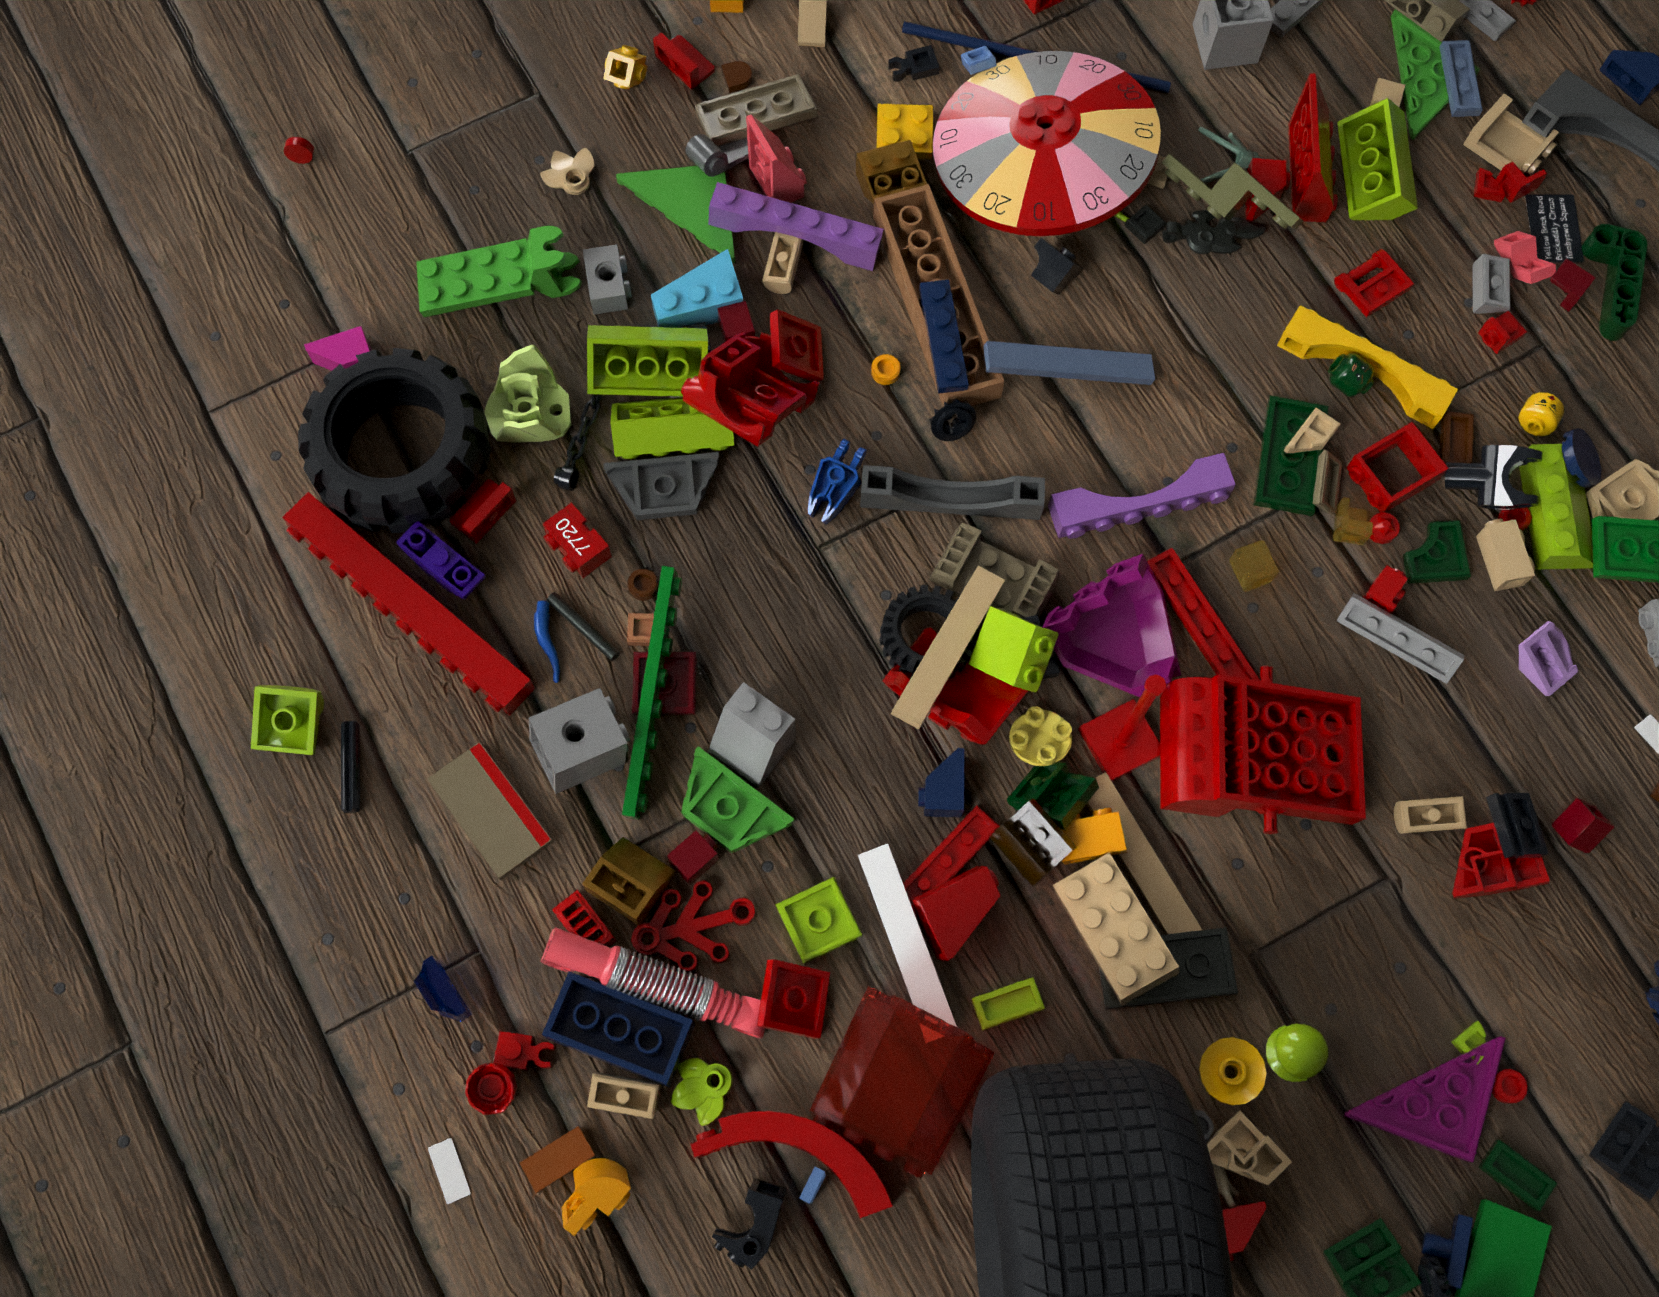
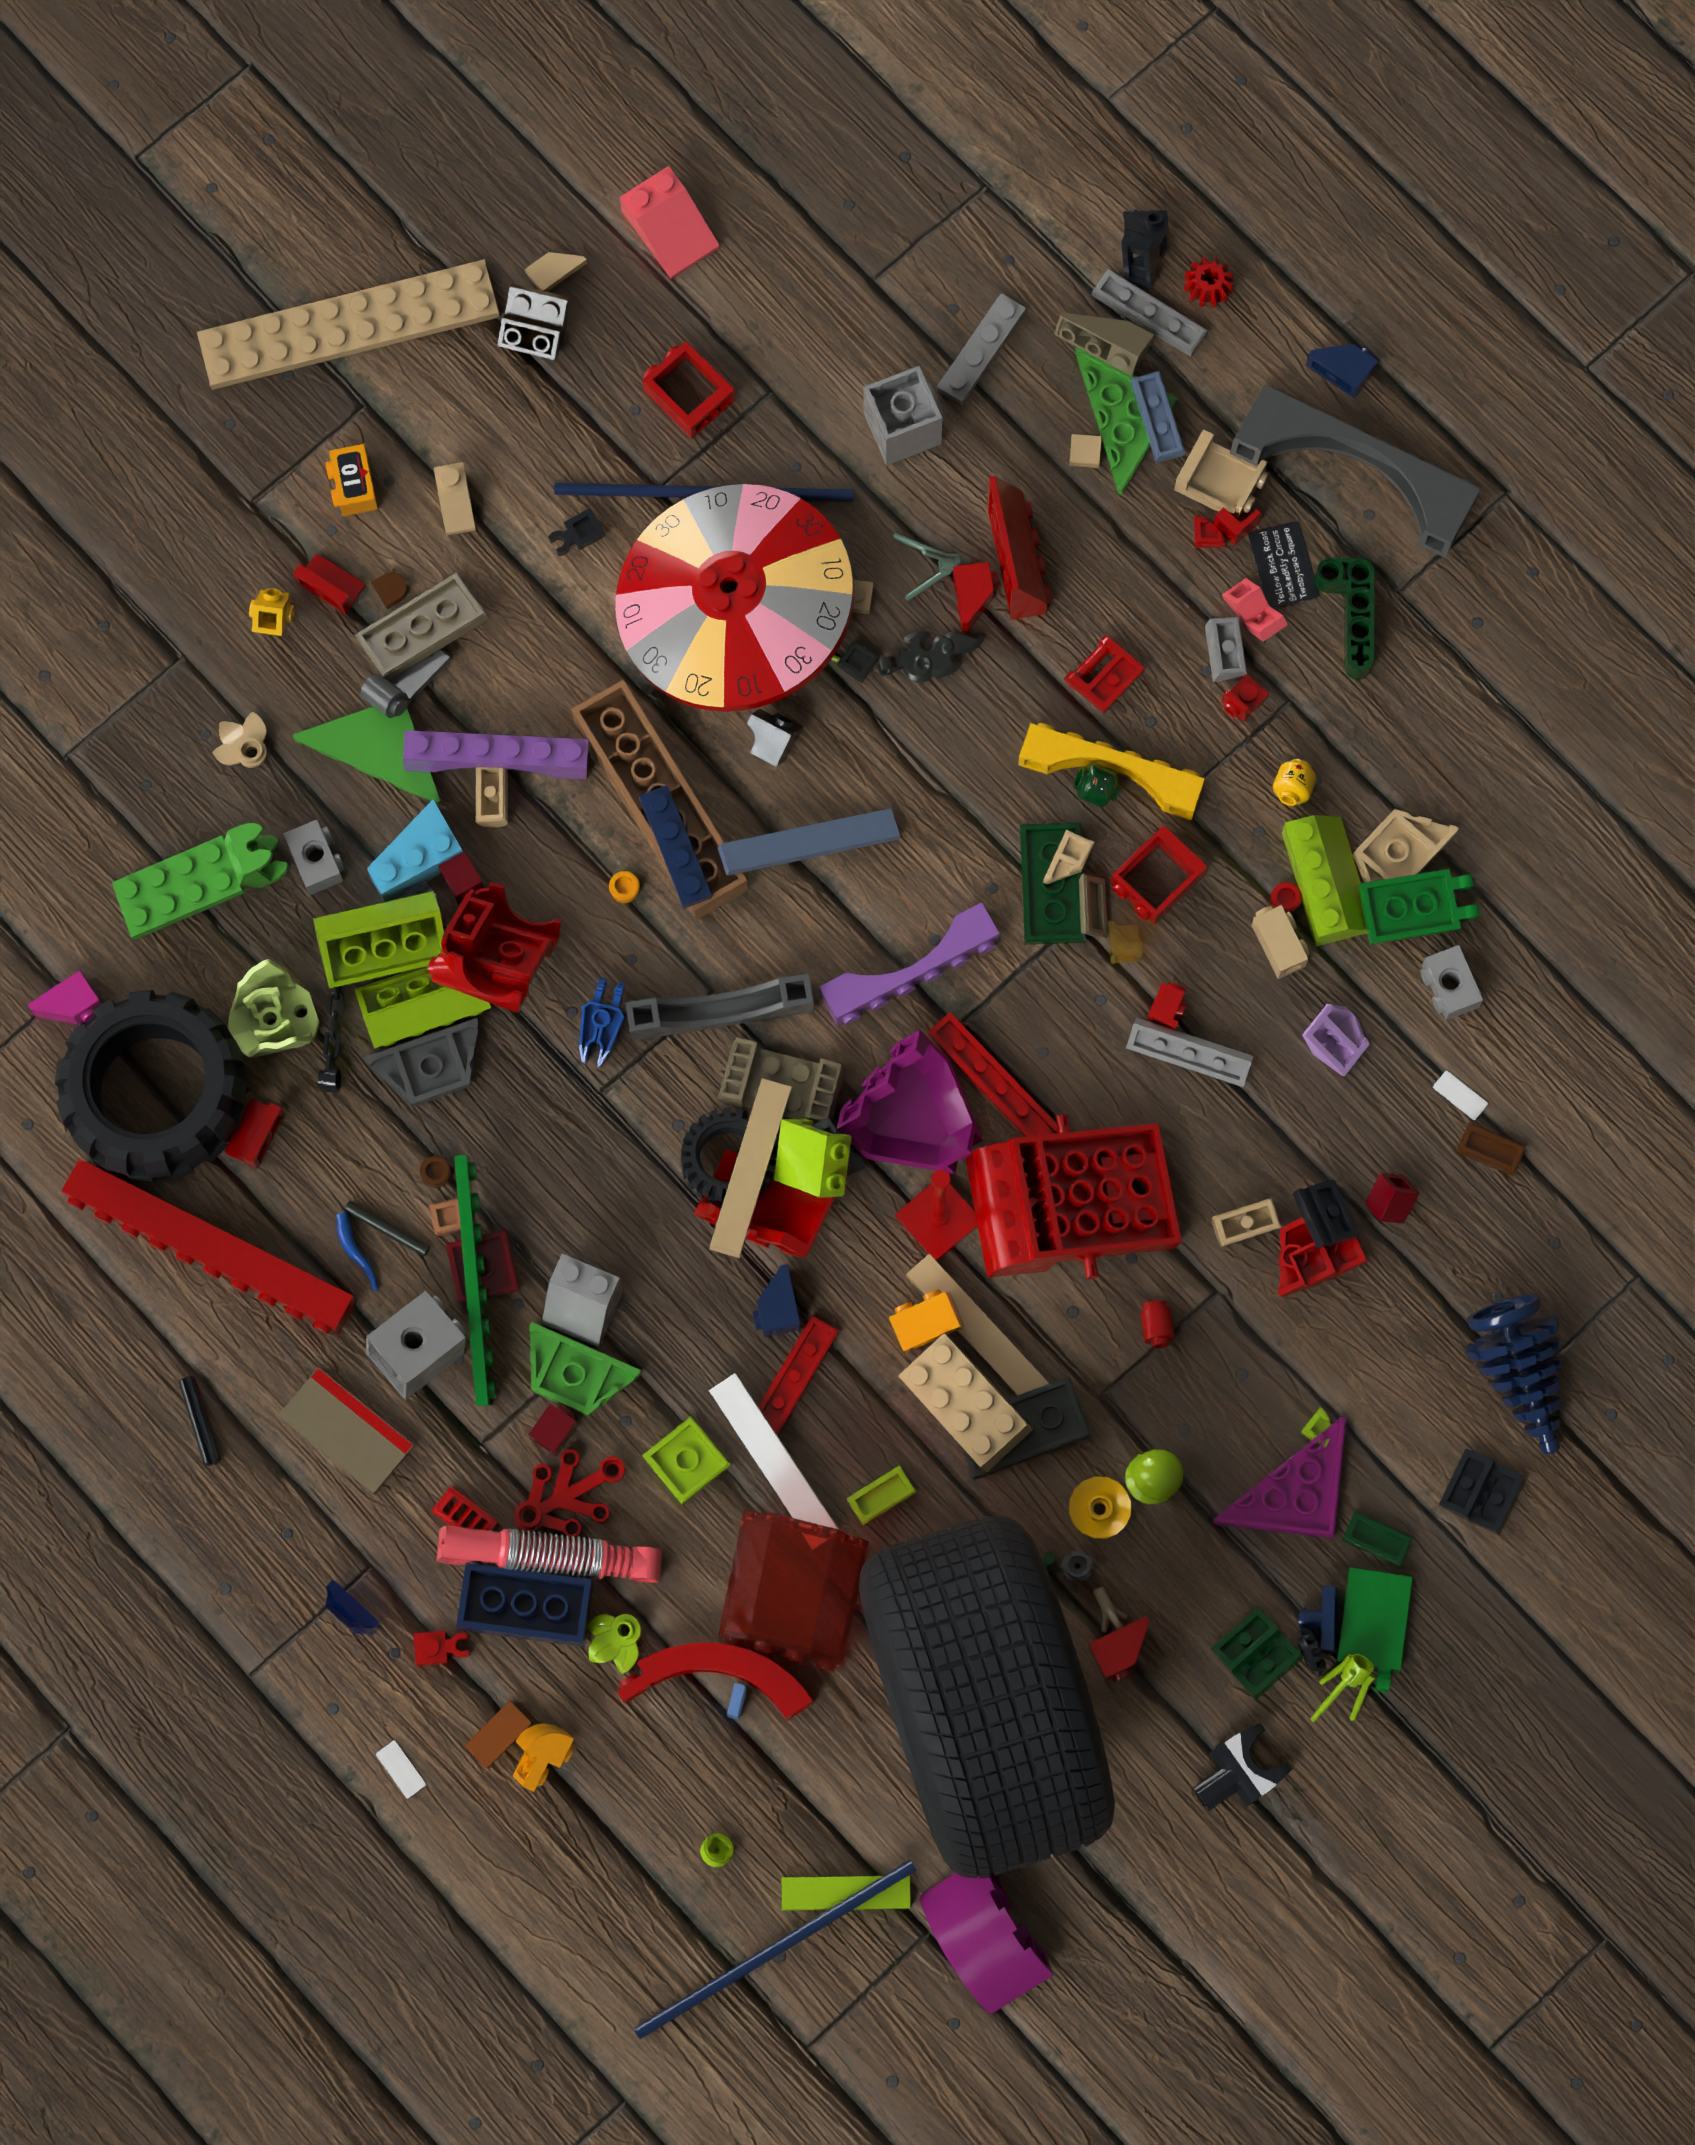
camera: 10 degrees left, 5 degrees up
(286, 719) = (125, 1390): lime slope -> none
(440, 561) = (231, 1198): dark purple slope -> none
(491, 1088) = (420, 1686): red hair -> none
(581, 548) = (364, 1150): red brick -> none
(624, 1095) = (544, 1663): tan brick -> none
(628, 880) = (498, 1465): pearl gold slope -> none
(766, 1205) = (700, 1729): black tile -> none
(773, 163) = (458, 692): coral slope -> none
(793, 999) = (680, 1538): red tile -> none
(796, 346) = (528, 887): red tile -> none
(888, 170) = (580, 670): pearl gold slope -> none
(904, 123) = (583, 612): yellow plate -> none
(956, 909) = (813, 1418): red slope -> none
(959, 427) = (715, 928): black gear -> none
(978, 60) = (643, 512): medium blue tile -> none
(1033, 842) = (871, 1339): dark brown brick -> none
(1040, 737) = (859, 1234): light yellow dish -> none
(1056, 791) = (881, 1287): dark green slope -> none
(1231, 192) = (937, 614): olive bracket -> none
(1247, 1151) = (1123, 1577): tan slope -> none
(1253, 565) = (1034, 1011): clear yellow panel -> none
(1323, 895) = (1157, 1324): none -> red brick
(1377, 163) = (1086, 537): lime slope -> none
(1384, 528) = (1156, 940): red tile -> none
(1440, 557) = (1218, 956): dark green tile -> none
(1457, 437) = (1216, 829): reddish brown tile -> none
(1493, 476) = (1252, 864): black connector -> none
(1509, 1086) = (1358, 1460): red tile -> none
(1573, 281) = (1304, 629): dark red panel -> none
(1581, 457) = (1339, 822): dark blue tile -> none

